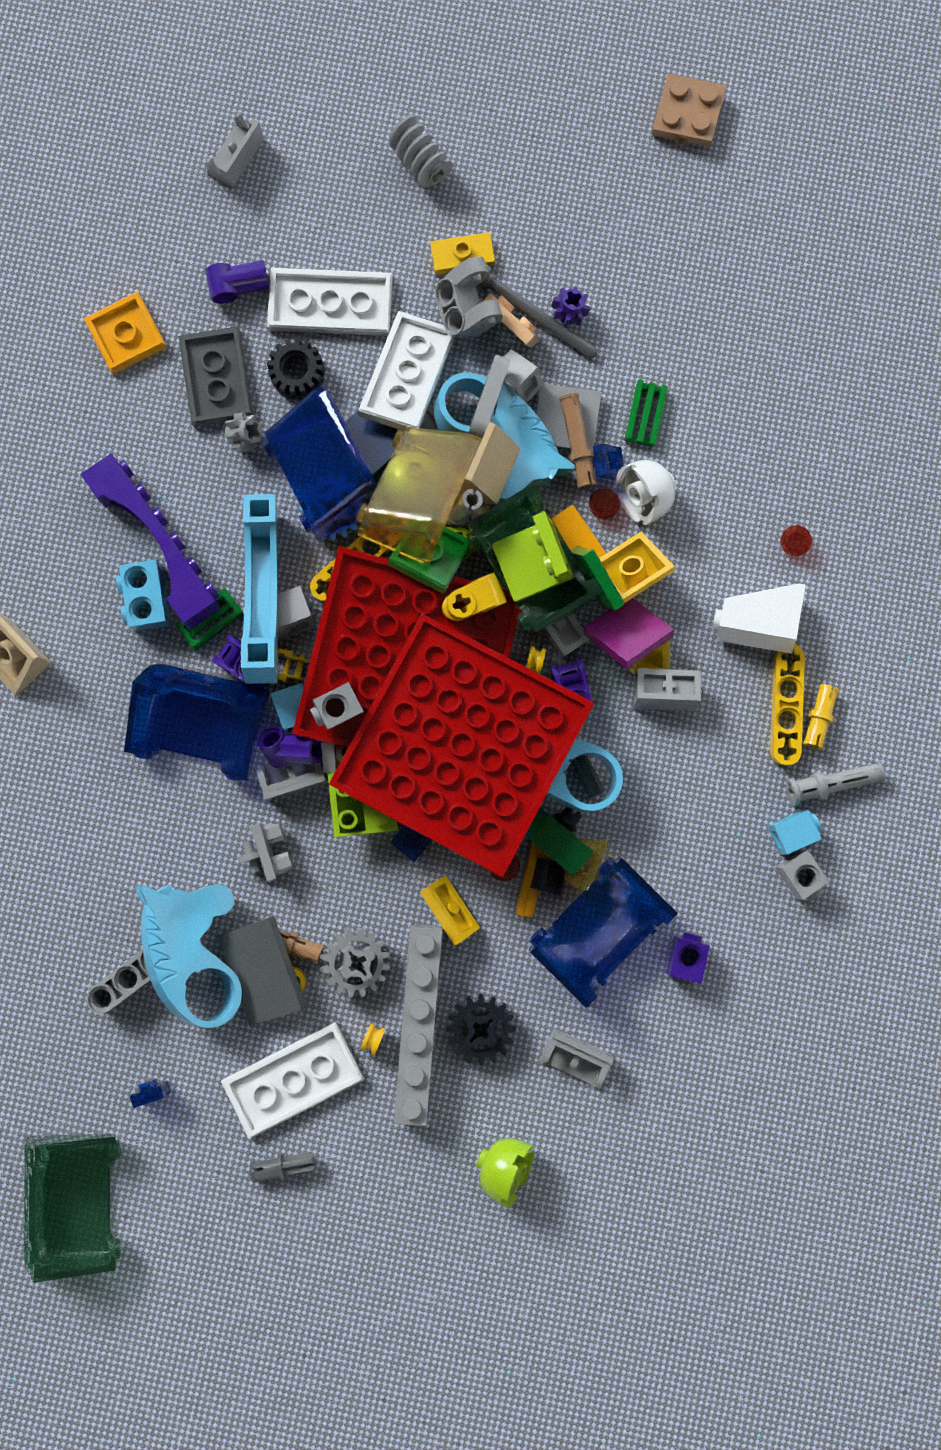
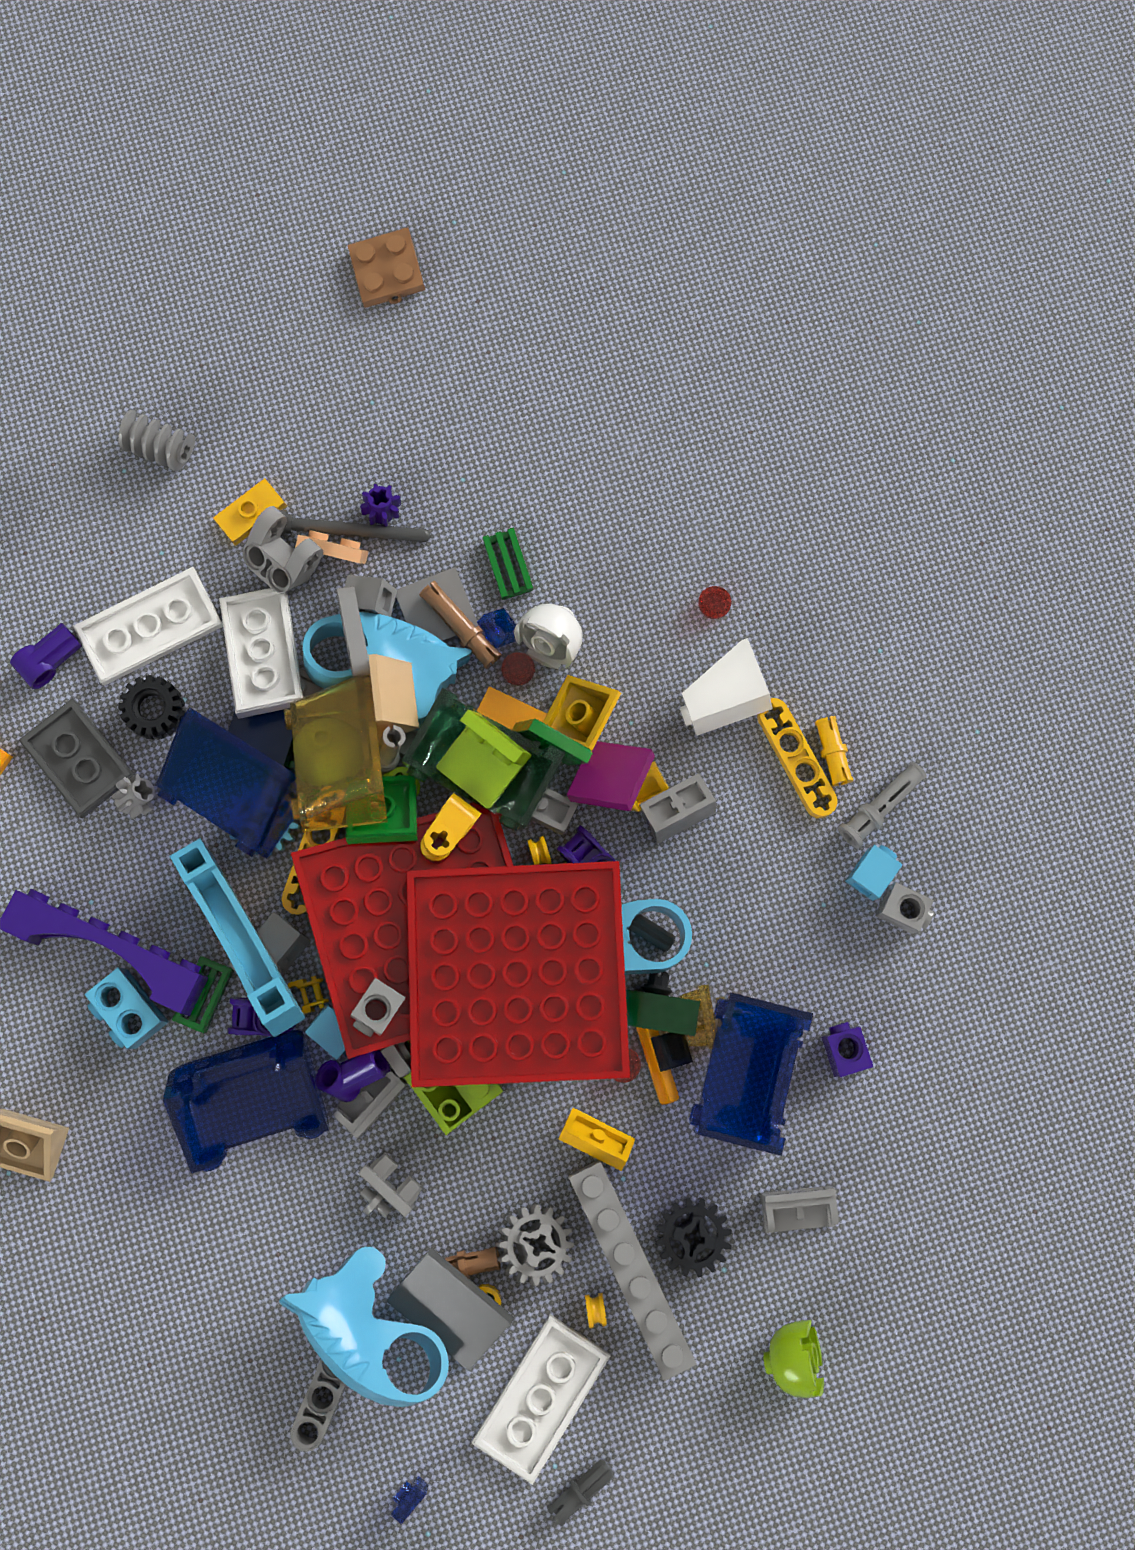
camera: 35 degrees left, 5 degrees down
(410, 842) = (521, 1096): clear blue plate -> none

